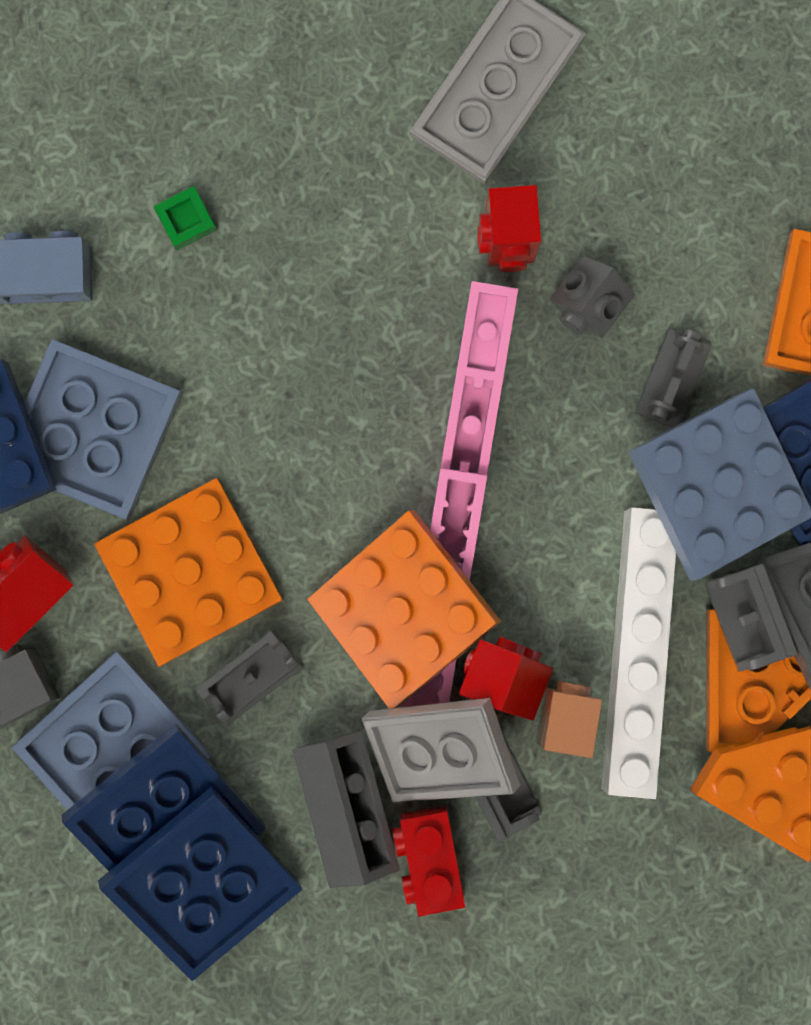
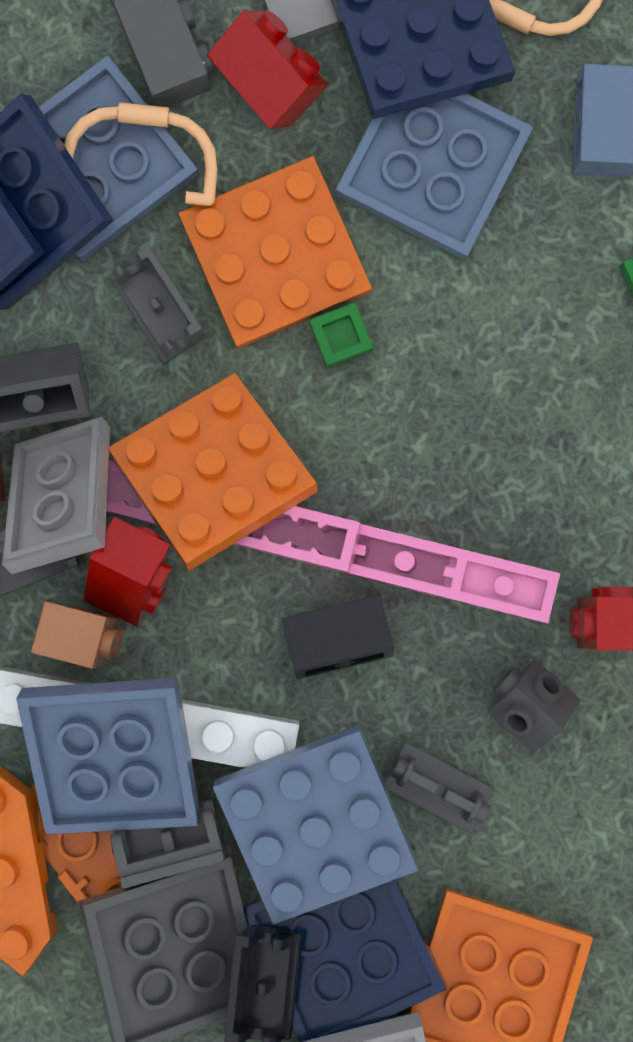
camera: 85 degrees right, 0 degrees up
(70, 694) = (158, 117): none -> light nougat piece
(263, 502) = (341, 335): none -> green plate
(545, 480) = (338, 637): none -> black hinge
(678, 677) = (110, 756): none -> sand blue plate

